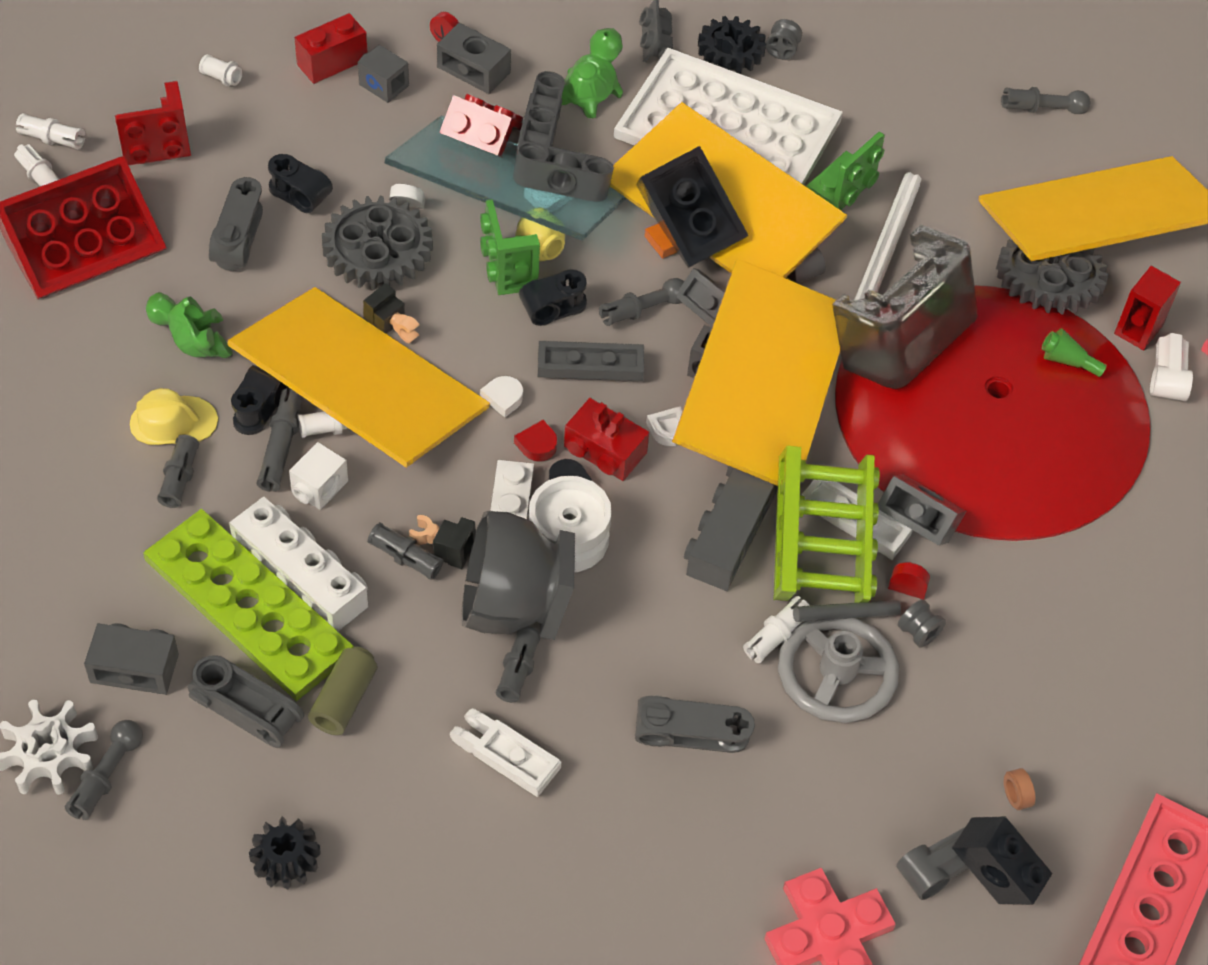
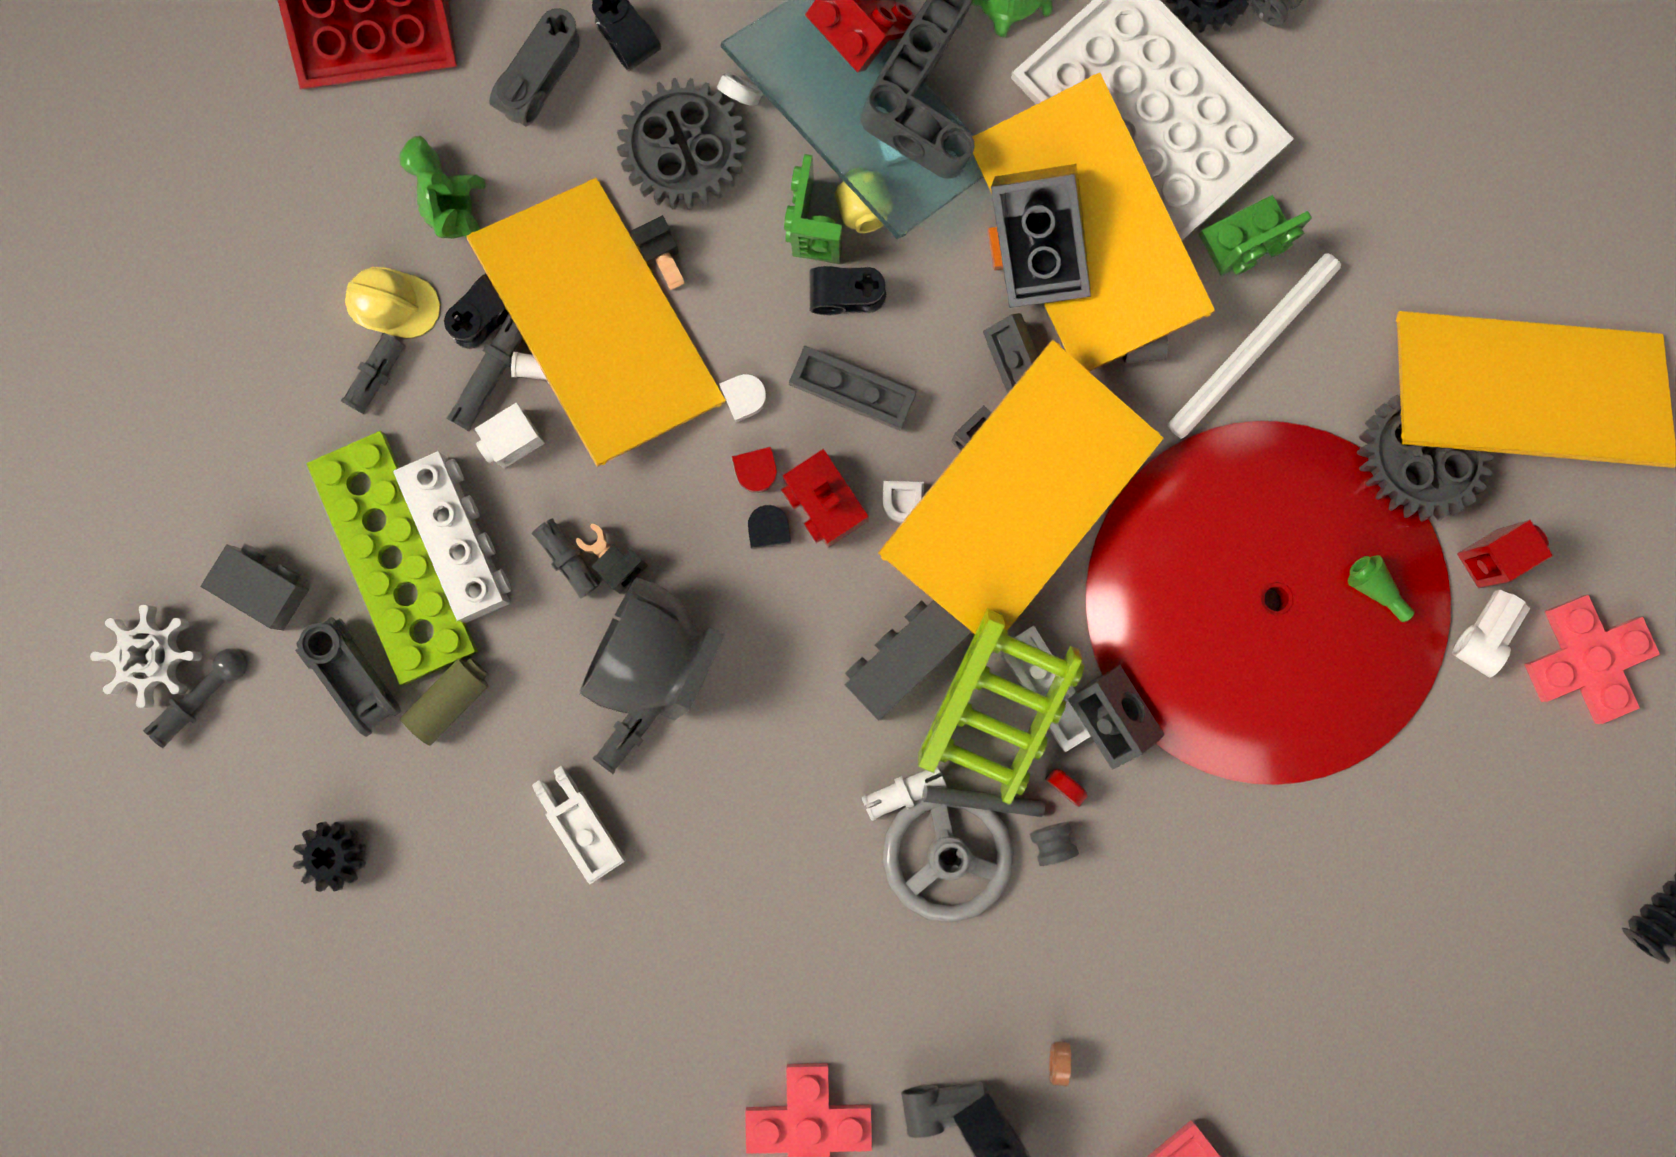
camera: 30 degrees right, 30 degrees up
(512, 487) = (697, 535): white hinge -> none
(574, 507) = (714, 595): white wheel -> none
(631, 306) = (925, 330): dark grey pin -> none
(692, 724) = (767, 872): dark grey piece -> none
(911, 324) = (1224, 496): clear smoke windscreen -> none
(1076, 102) = (1589, 213): dark grey pin -> none

